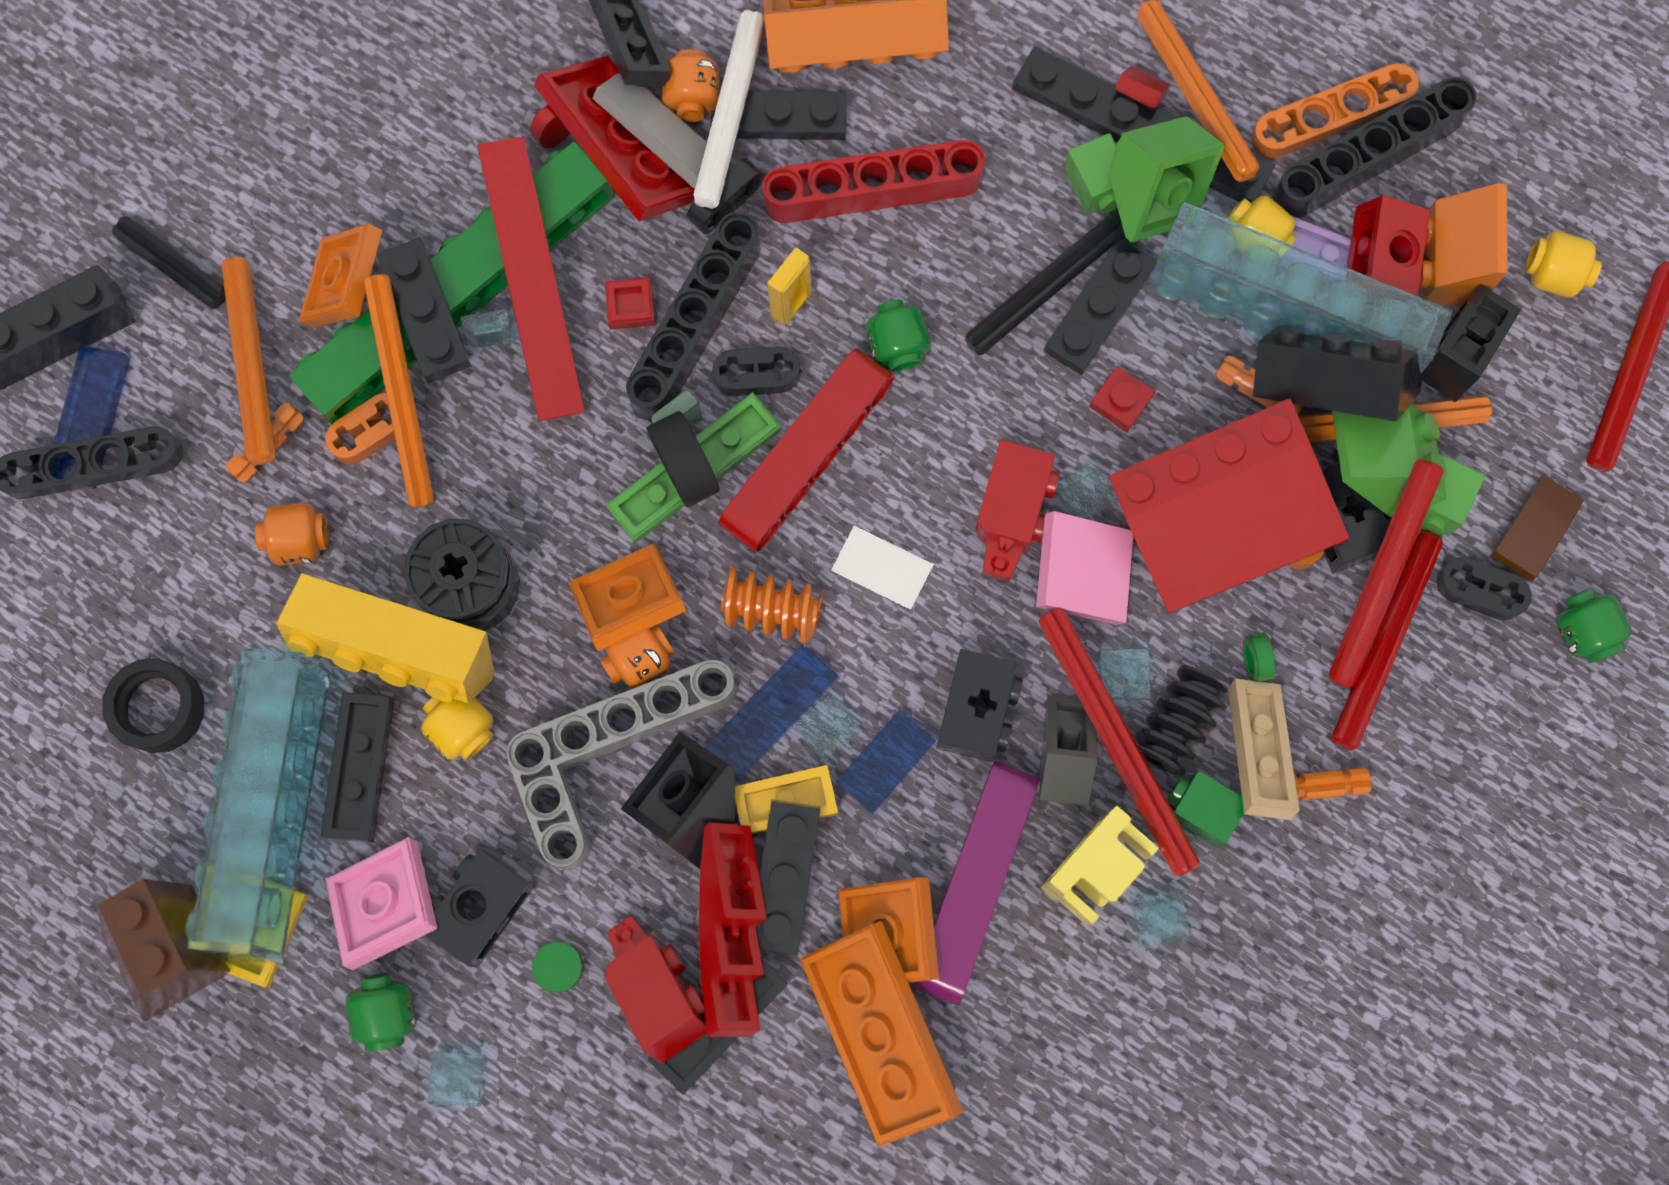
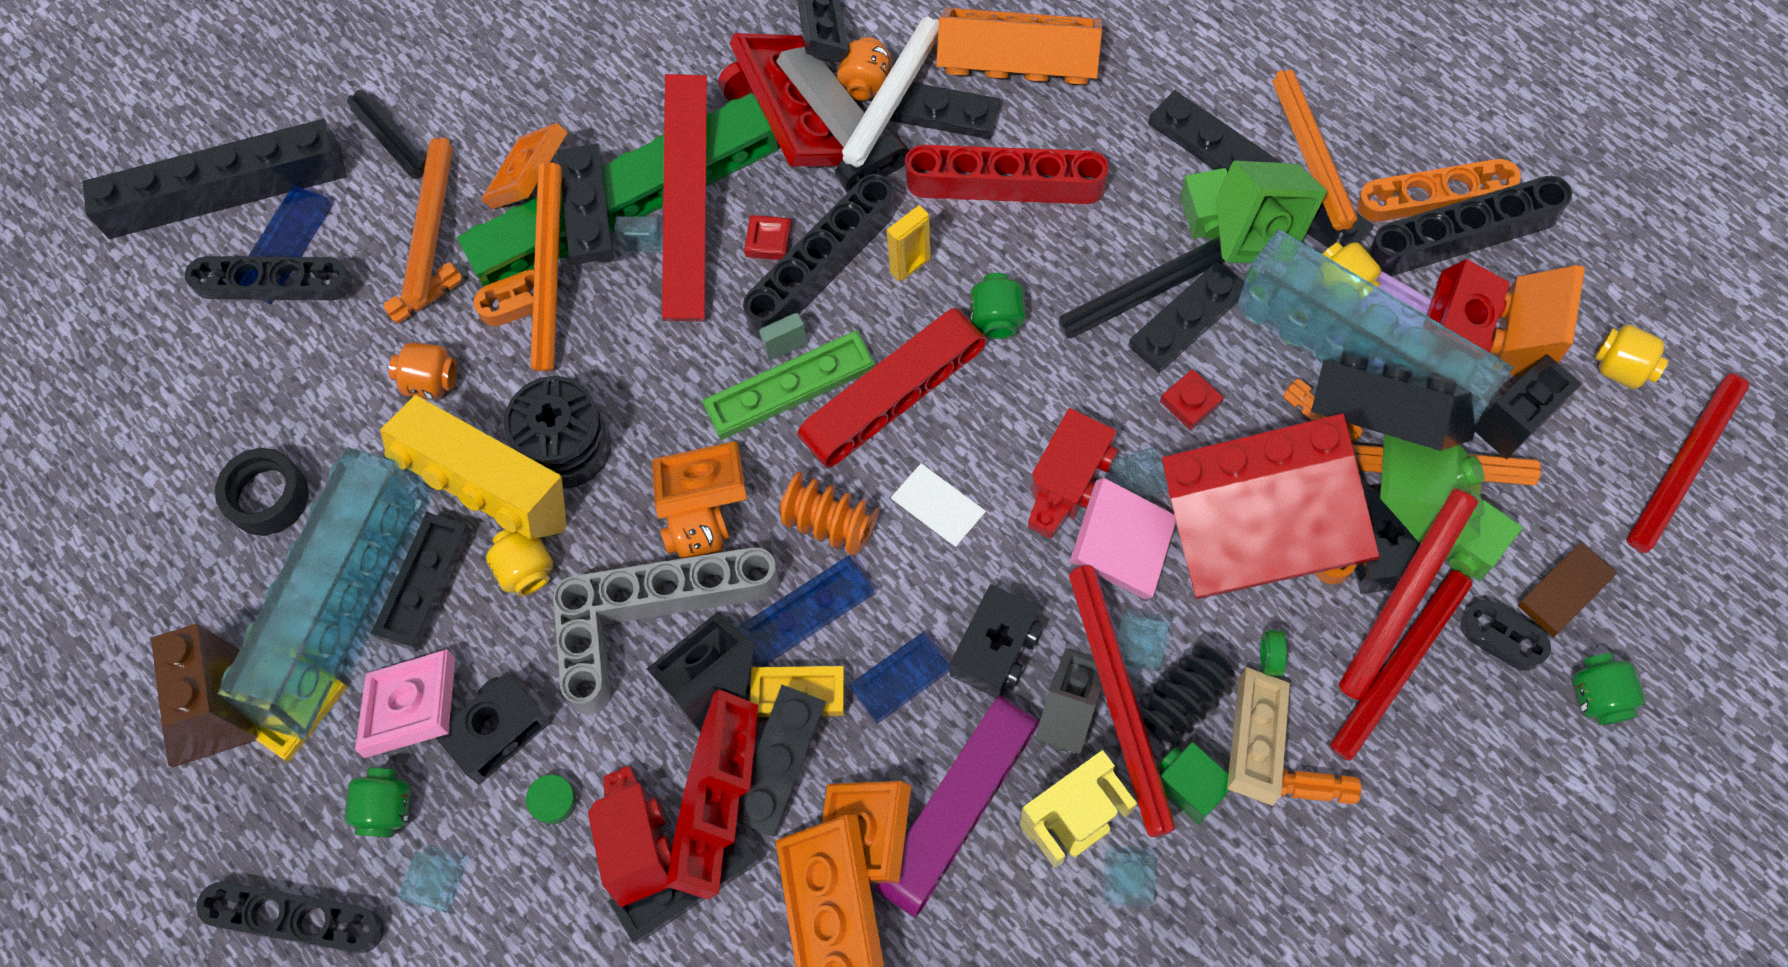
camera: 15 degrees right, 10 degrees down
(321, 1151) = (291, 913): none -> black beam
(683, 458) = (777, 367): black tyre -> none
(755, 360) = (864, 313): black beam -> none
(827, 728) = (853, 636): clear light blue tile -> none
(1142, 86) = (1264, 138): red tile -> none

